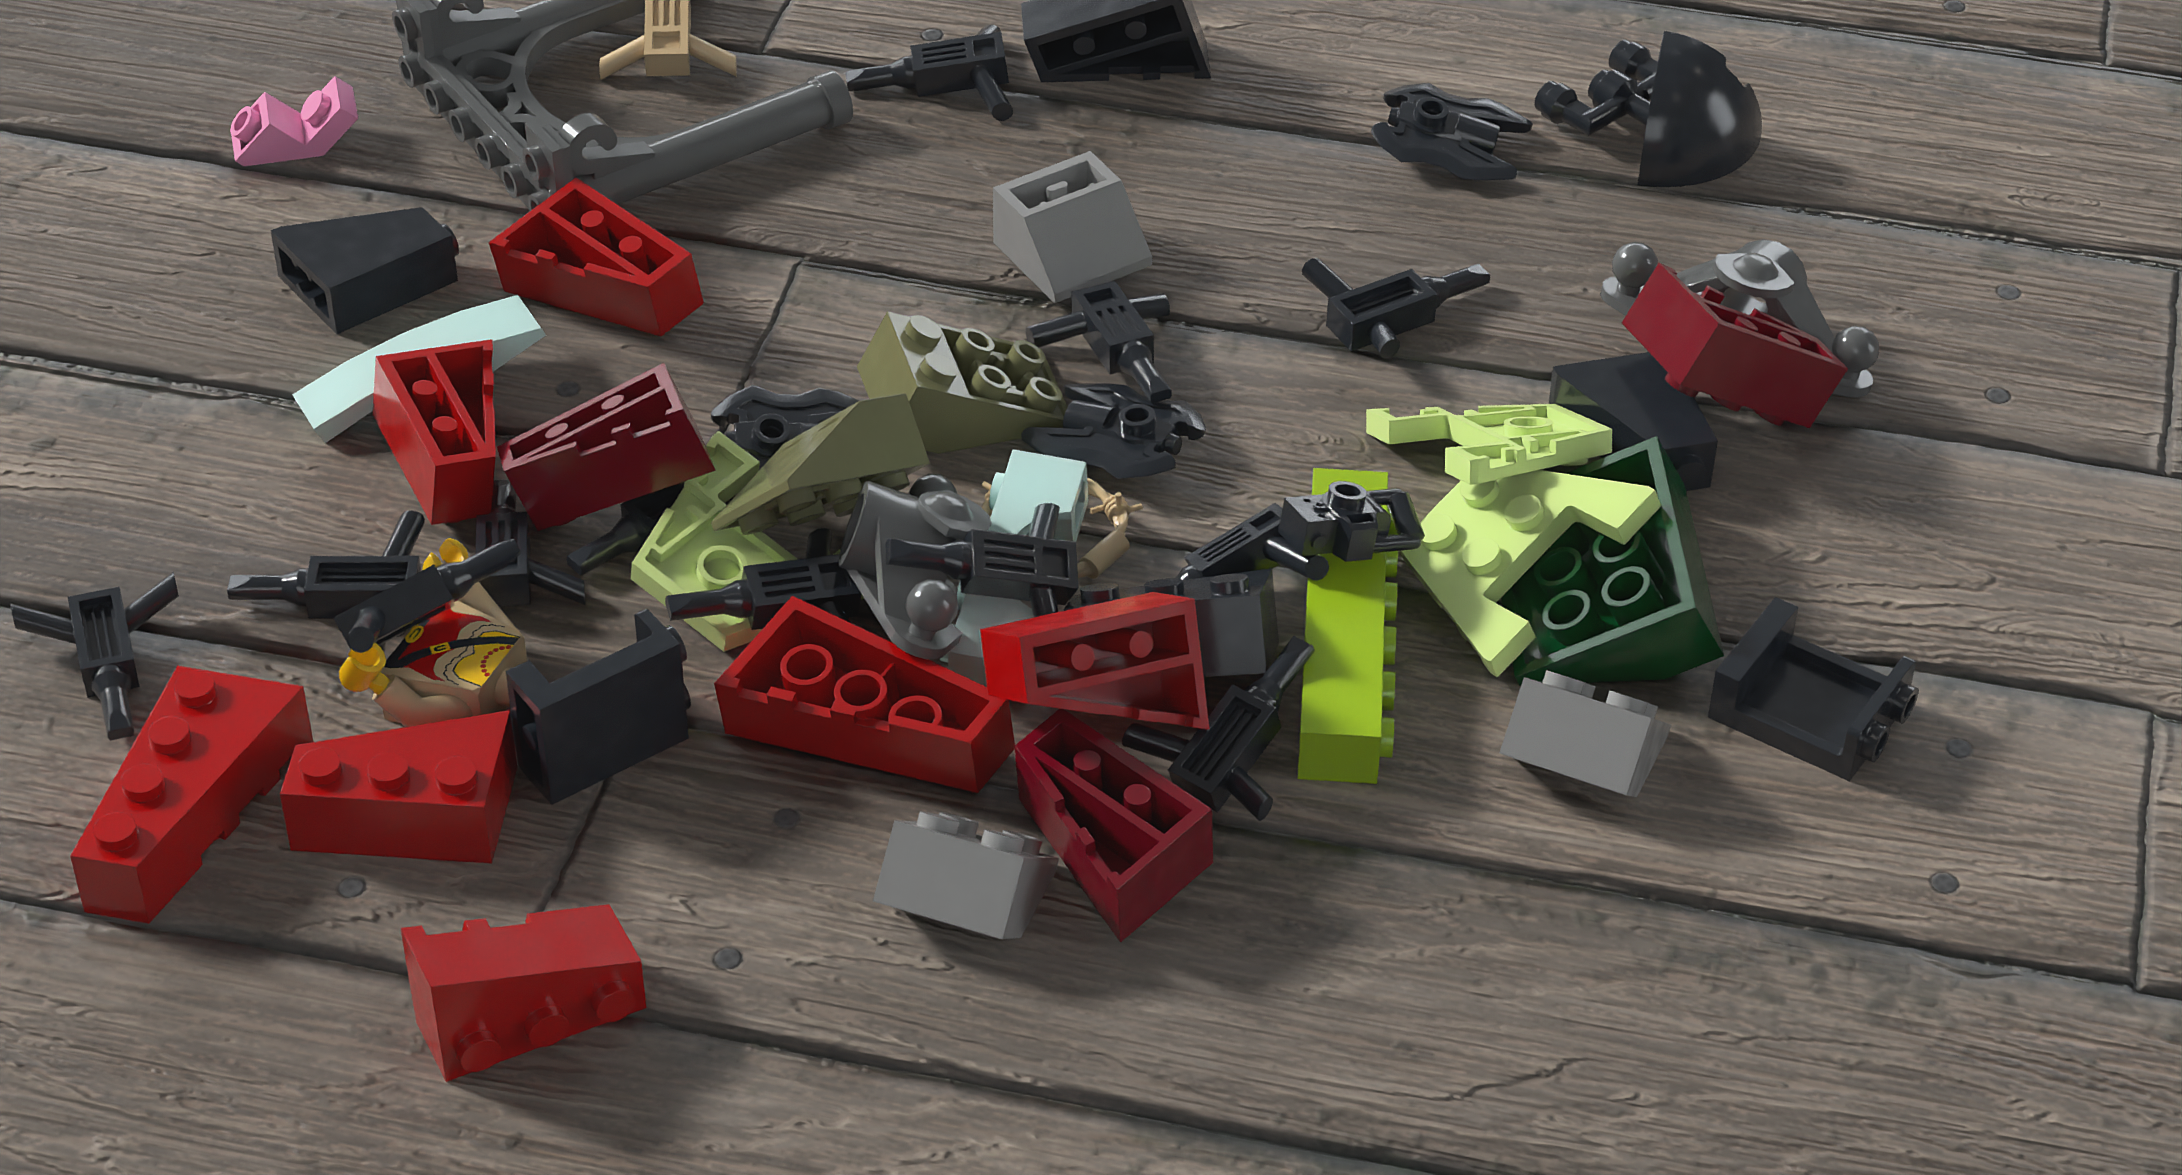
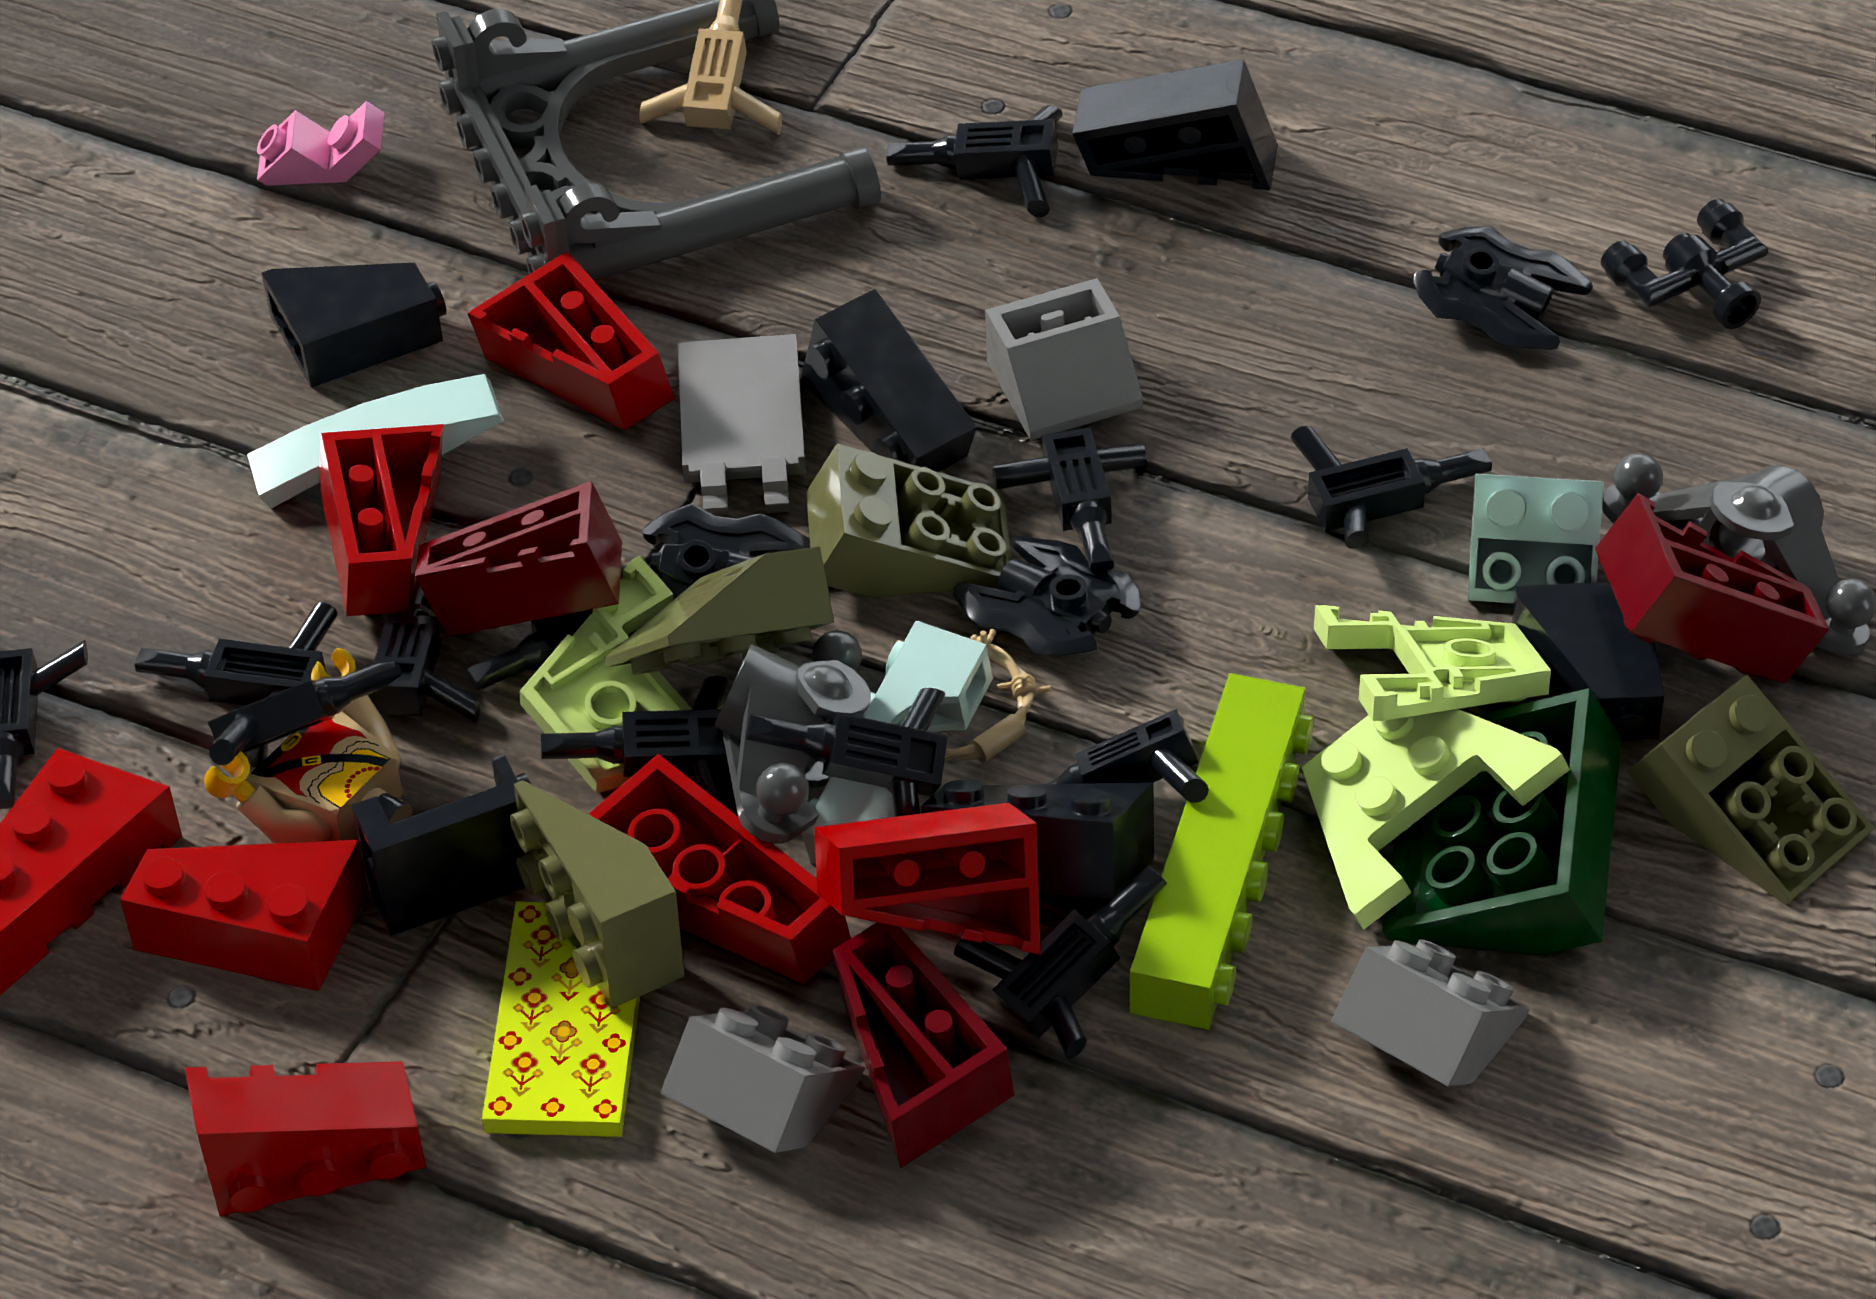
camera: 15 degrees right, 5 degrees up
(754, 854) = (557, 1044): none -> neon yellow tile
(769, 725) = (600, 895): none -> olive slope
(772, 311) = (741, 416): none -> light grey tile
(904, 262) = (885, 386): none -> black wedge
(1350, 522) = (1240, 746): black piece -> none
(1547, 322) = (1532, 534): none -> light aqua slope
(1697, 117) = (1764, 304): black brick -> none
(1808, 696) = (1681, 996): black panel -> none
(1814, 516) = (1752, 793): none -> olive slope

